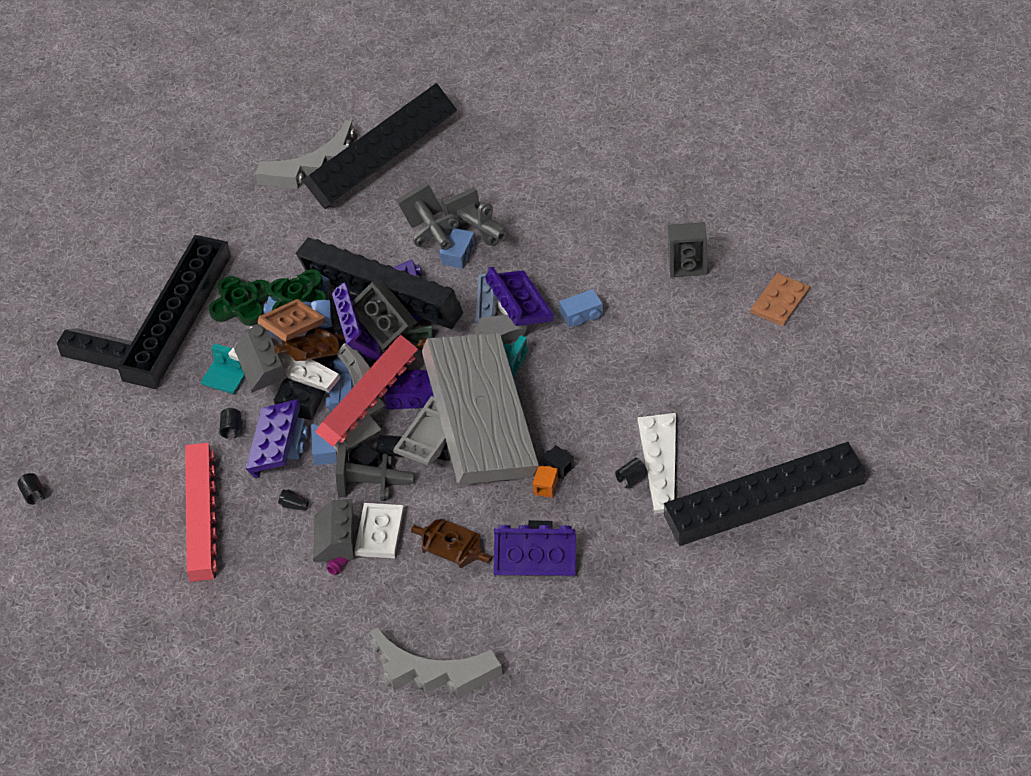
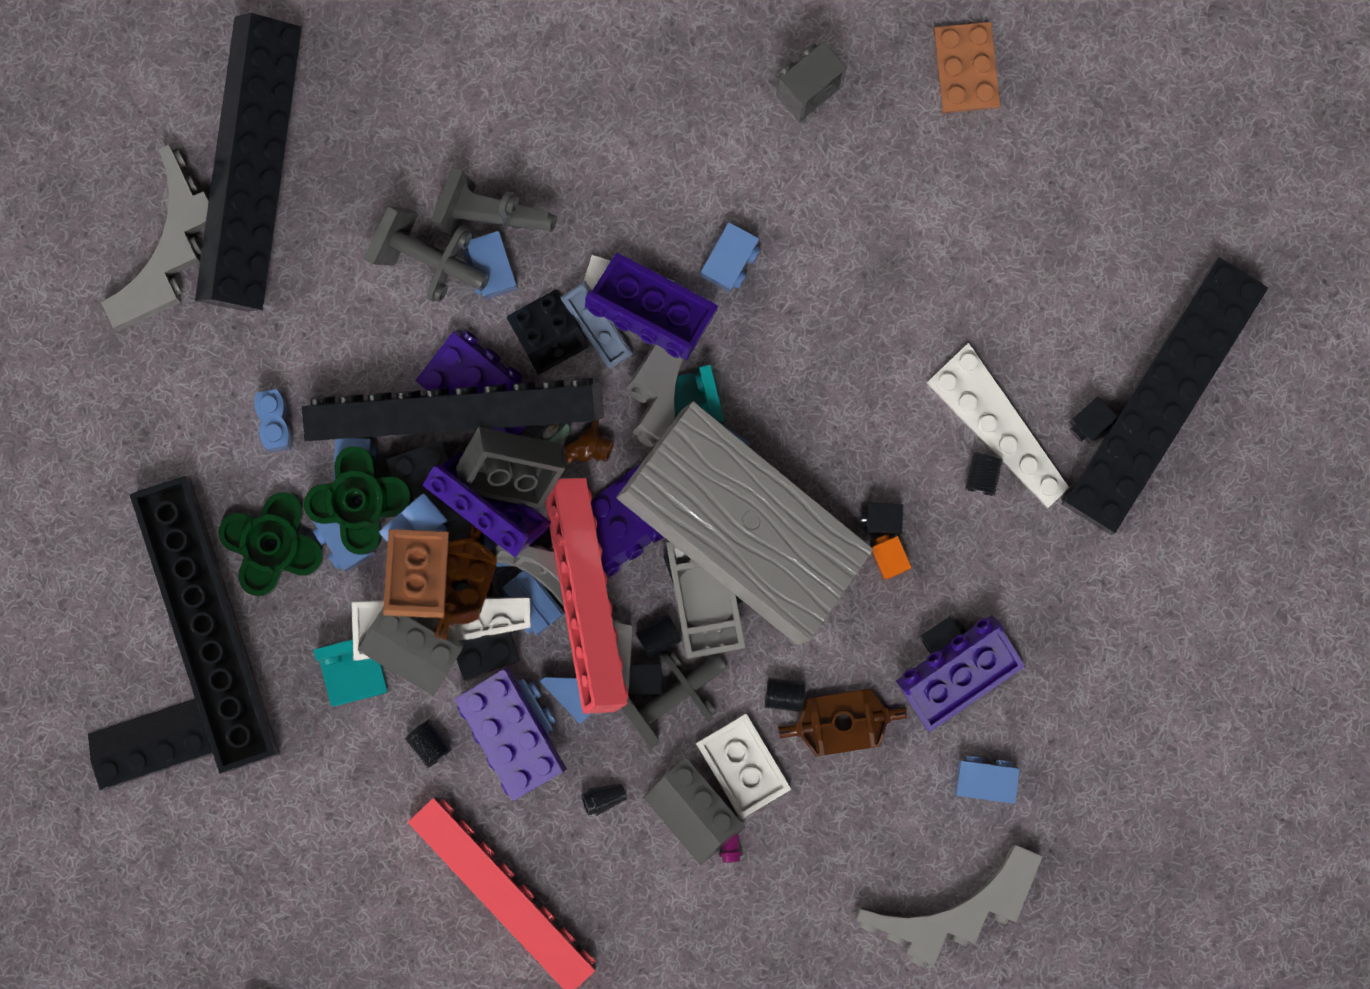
camera: 40 degrees left, 35 degrees up
(287, 251) = (273, 412): none -> medium blue brick
(430, 507) = (785, 695): none -> black piece
(464, 288) = (547, 332): none -> black bracket
(504, 615) = (987, 781): none -> medium blue brick
(711, 478) = (1092, 420): none -> black brick

